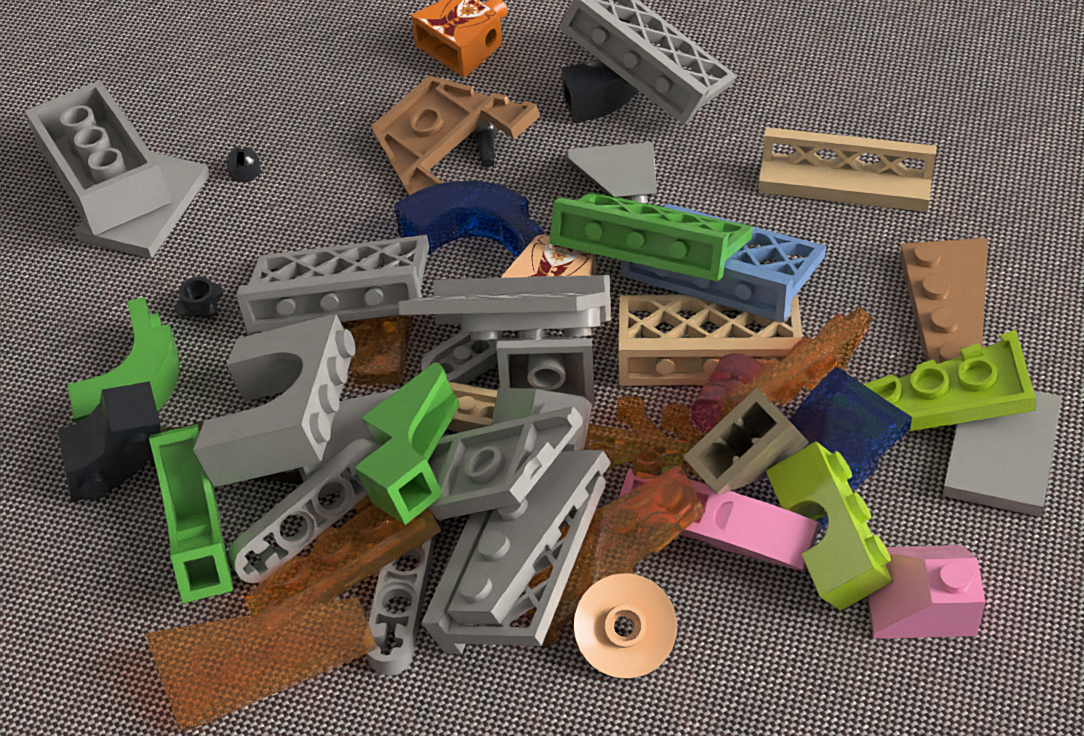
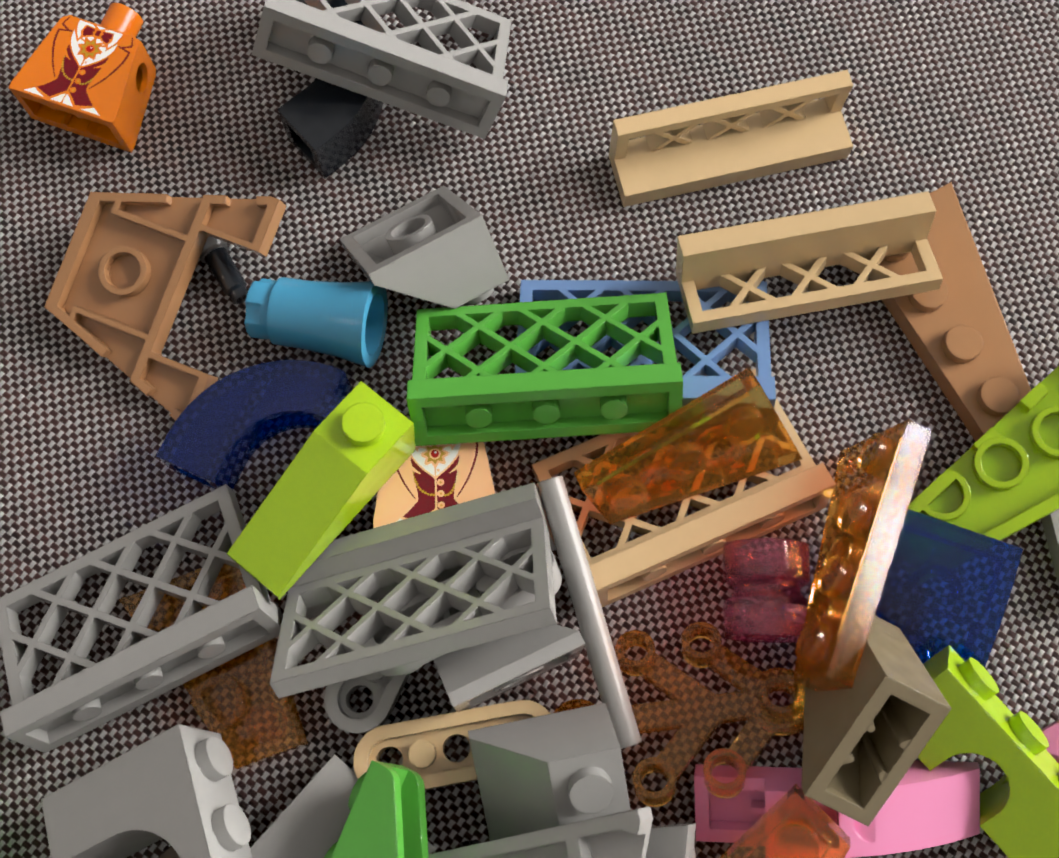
camera: 30 degrees left, 25 degrees up
(488, 234) = (324, 488): none -> lime slope
(531, 175) = (320, 316): none -> dark azure plant
(608, 359) = (588, 610): none -> light grey bar
(720, 298) = (691, 451): none -> clear orange wing
(854, 229) = (804, 243): none -> tan fence

